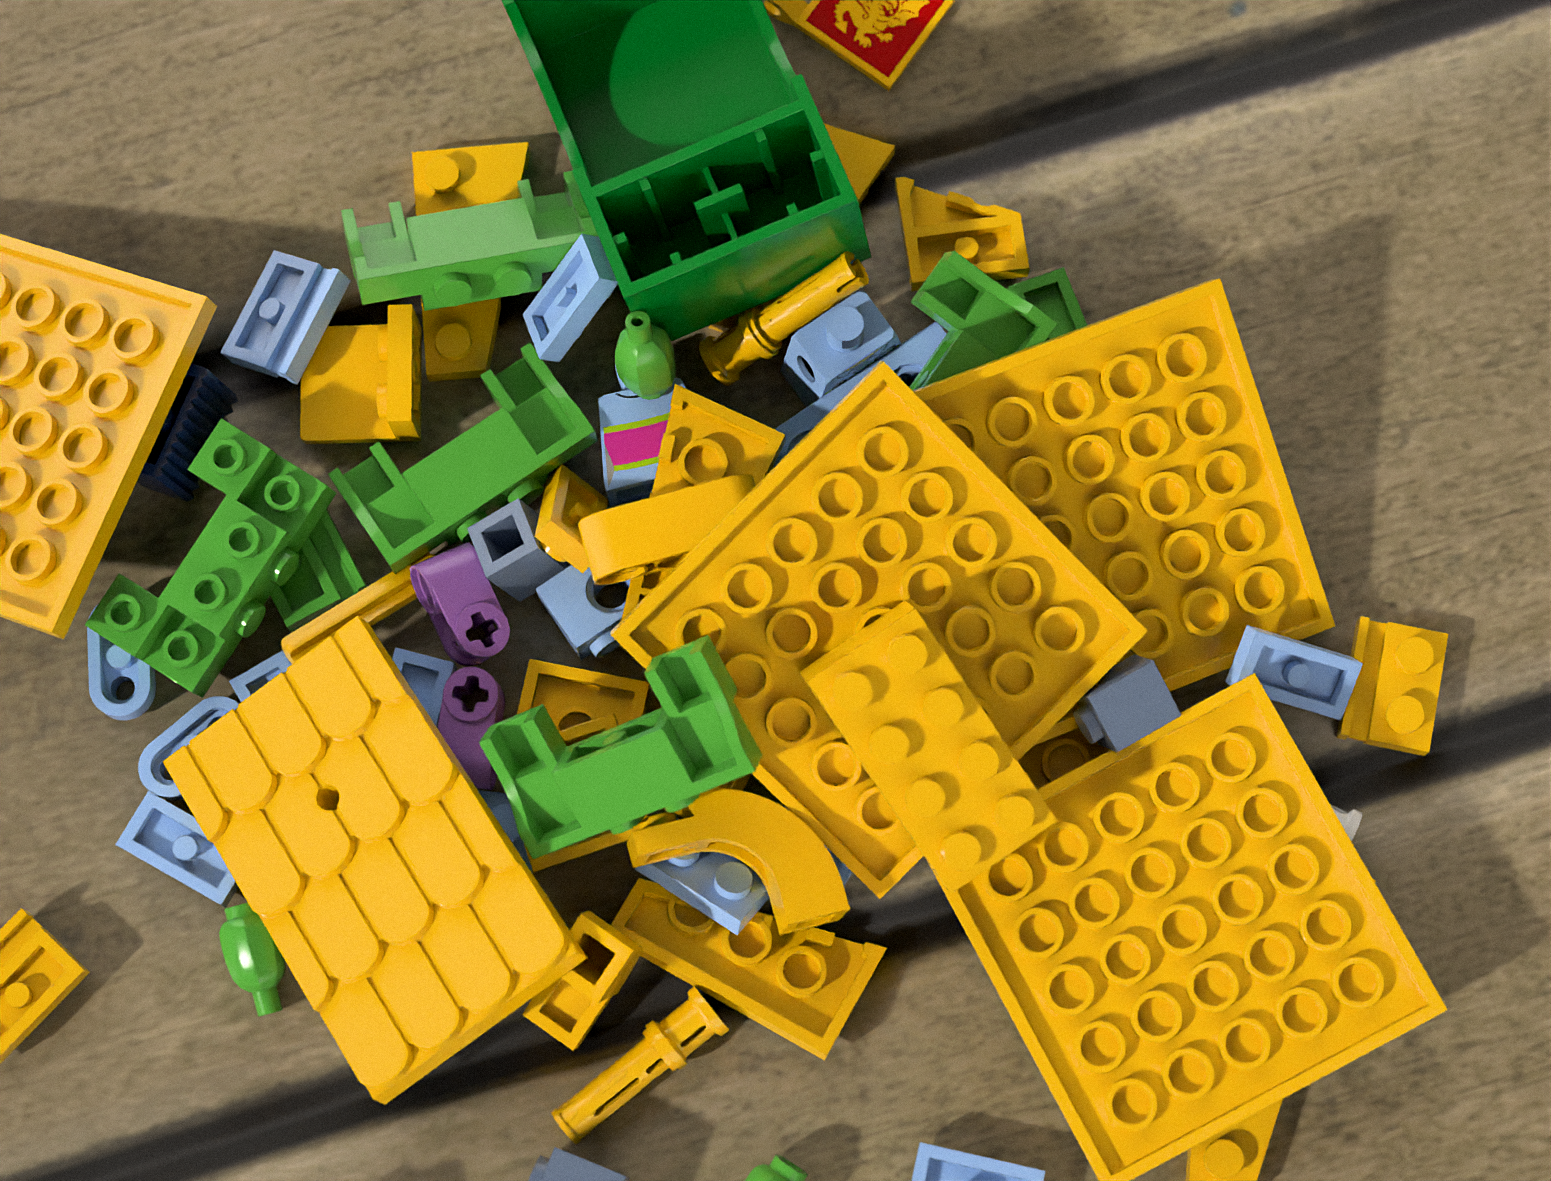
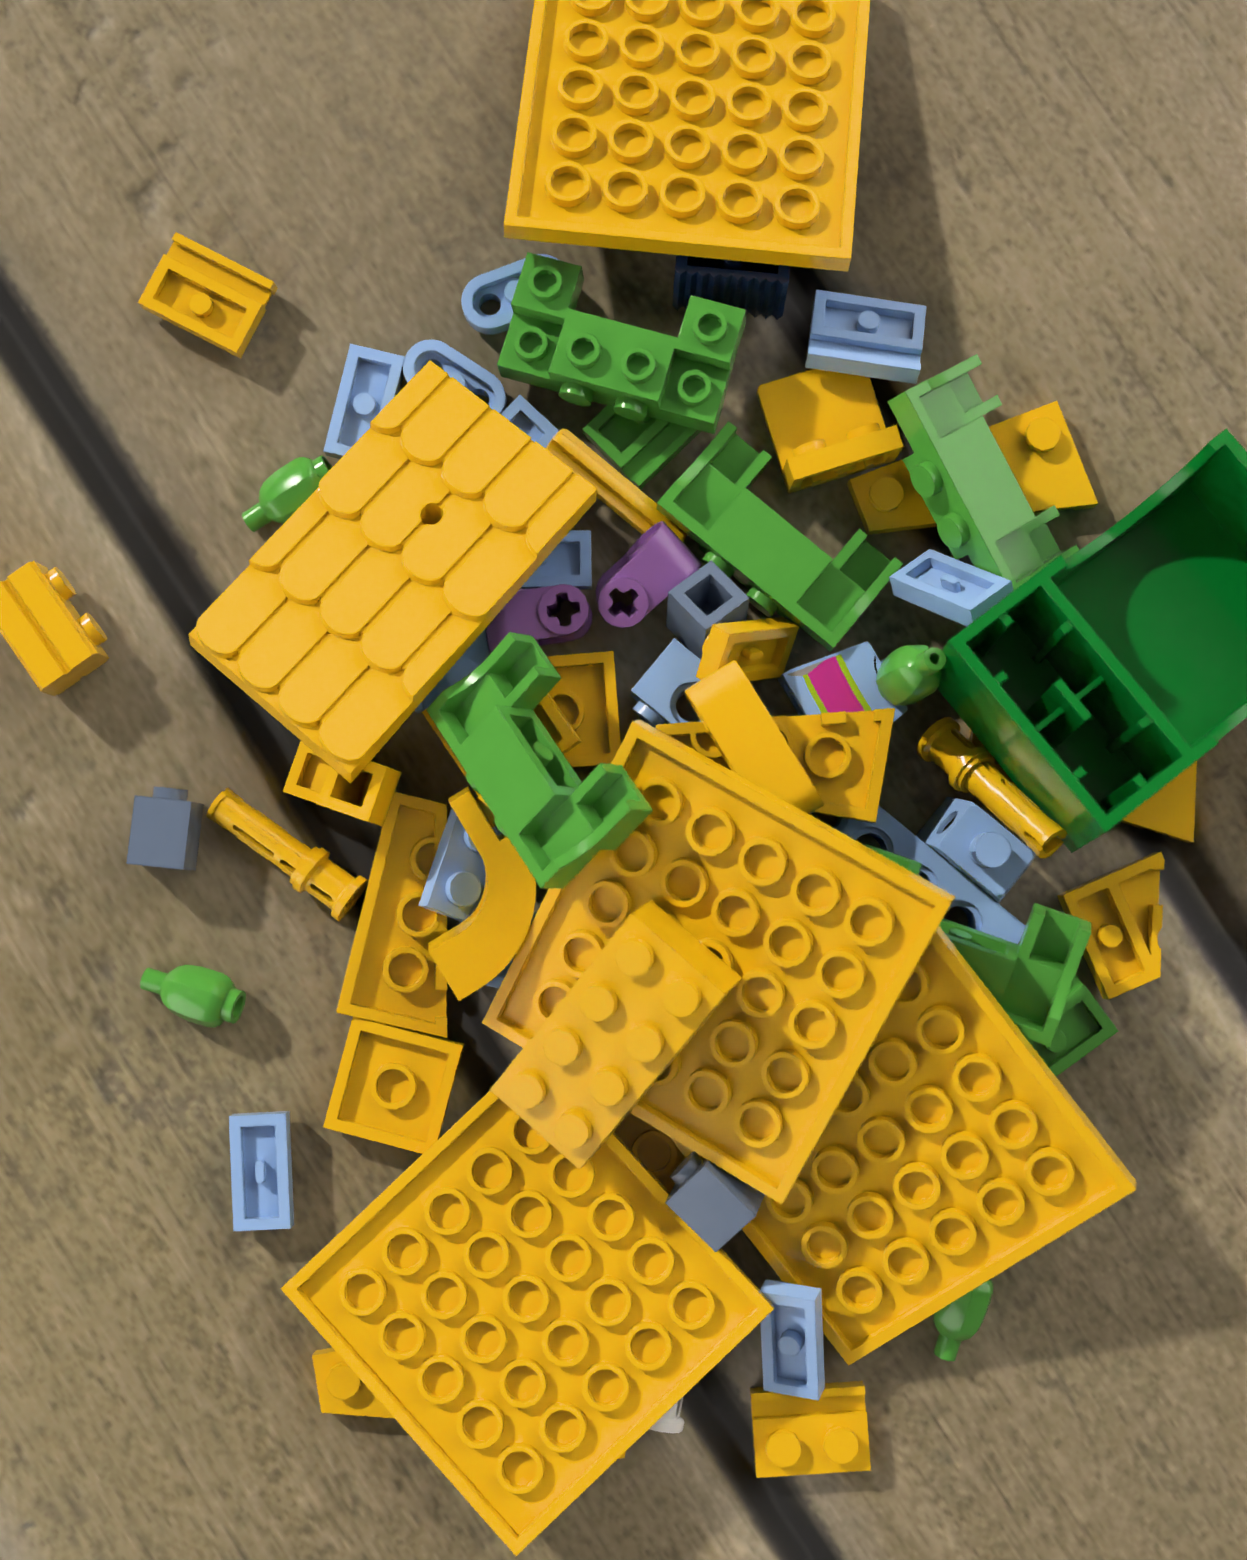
camera: 75 degrees right, 10 degrees up
(921, 1018) = (393, 1085): none -> yellow plate
(1316, 501) = (961, 1320): none -> bright green plant

